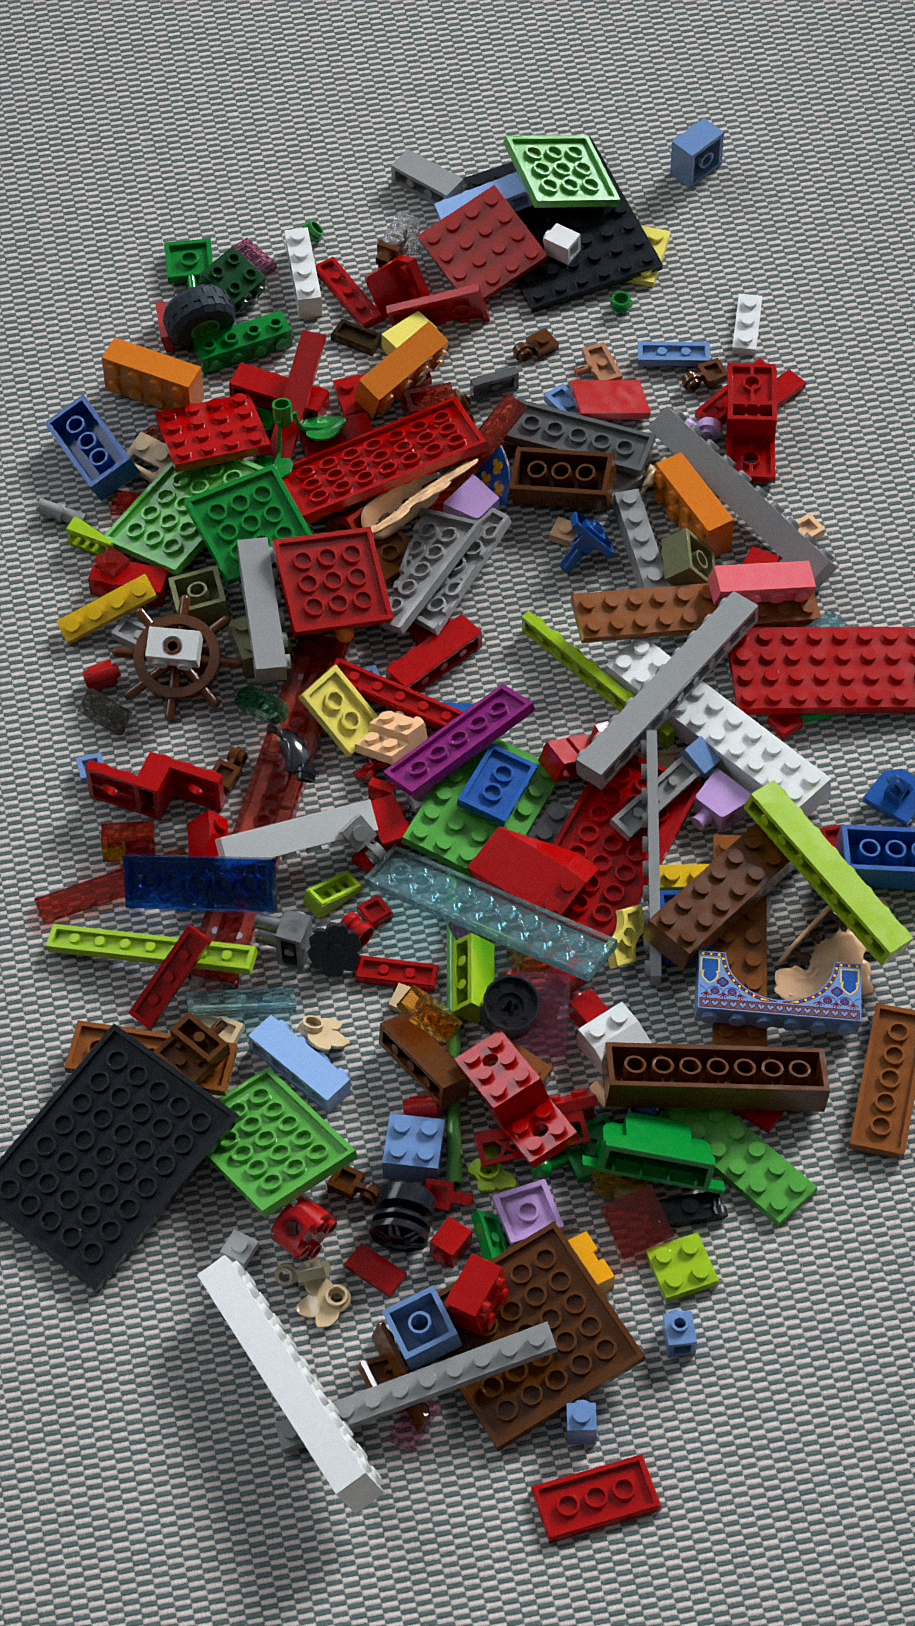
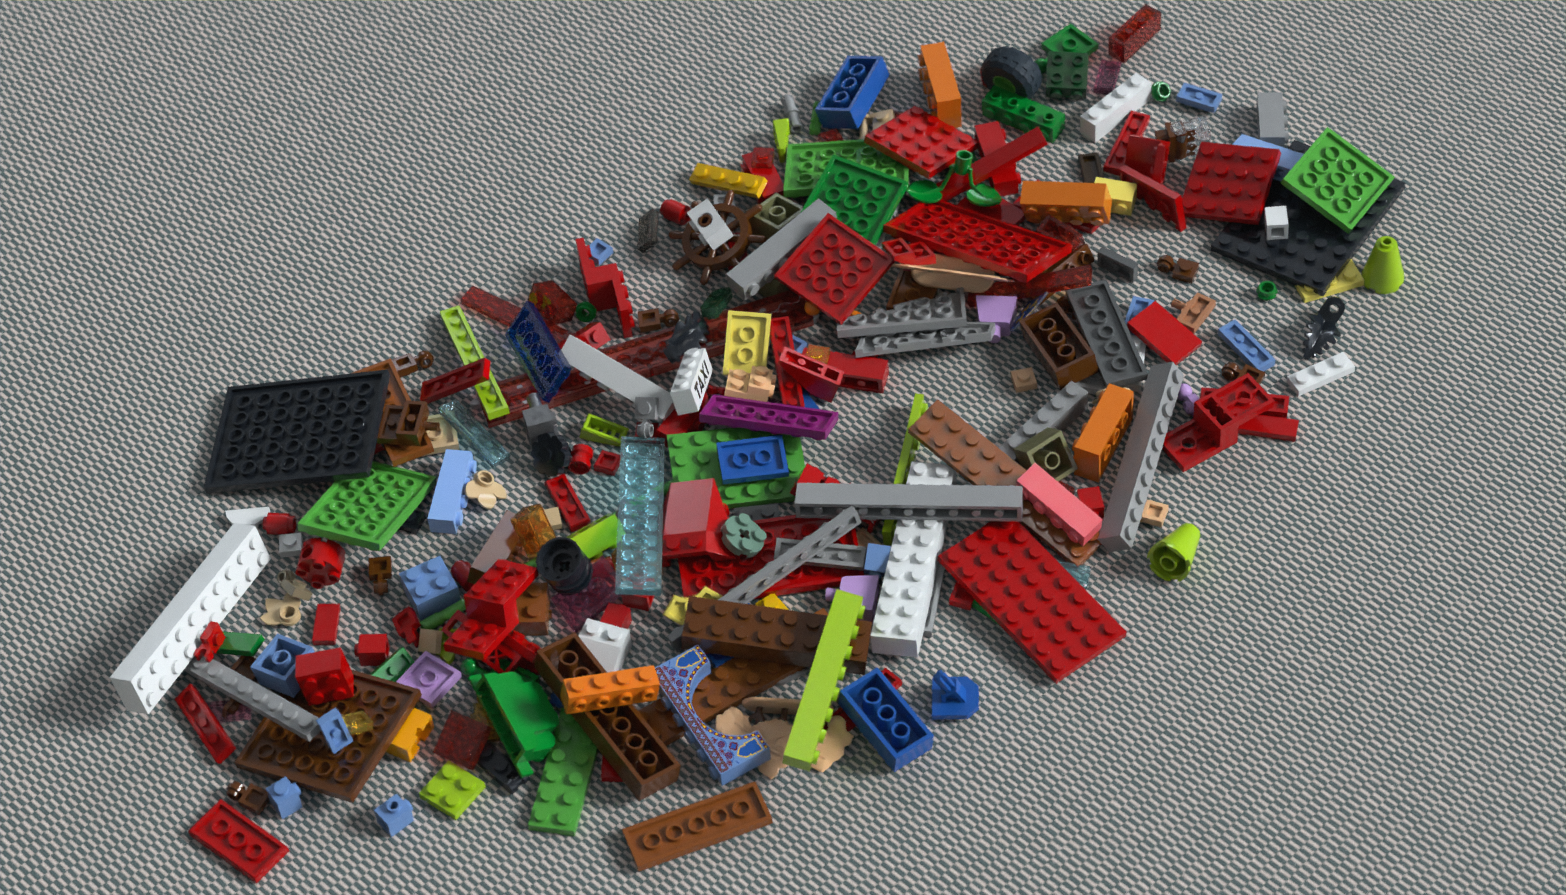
camera: 60 degrees right, 5 degrees down
(85, 498) = (815, 122): none -> bright green axle
(94, 1008) = (408, 364): none -> reddish brown plate
(165, 821) = (584, 316): none -> green plate
(167, 1272) = (249, 516): none -> white tile
(206, 1242) = (279, 523): none -> red brick
(228, 205) = (1134, 33): none -> clear red brick
(329, 1379) = (211, 641): none -> red plate
(345, 1362) = (240, 644): none -> green tile
(347, 210) = (1199, 97): none -> medium blue plate
(356, 778) = (691, 381): none -> white brick
(368, 511) = (912, 254): none -> red slope
(403, 1216) = (367, 609): black wheel -> none
(410, 664) = (818, 352): none -> clear yellow plate
(421, 1451) = (205, 724): none -> red tile
(432, 679) = (812, 374): none -> red slope
(483, 1184) = (430, 641): none -> tan tile
(555, 1453) = (252, 798): none -> reddish brown plate
(558, 1297) = (358, 722): none -> clear yellow plate
(560, 1320) = (334, 730): none -> medium blue plate
(584, 843) = (753, 539): none -> sand green plate
(589, 536) = (1024, 391): blue piece -> none
(674, 206) = (1384, 267): none -> lime cone
(688, 277) = (1323, 328): none -> black plant
(696, 153) = (1448, 248): medium blue brick -> none
(708, 1049) = (610, 689): none -> orange brick
(871, 538) = (1175, 553): none -> lime cone

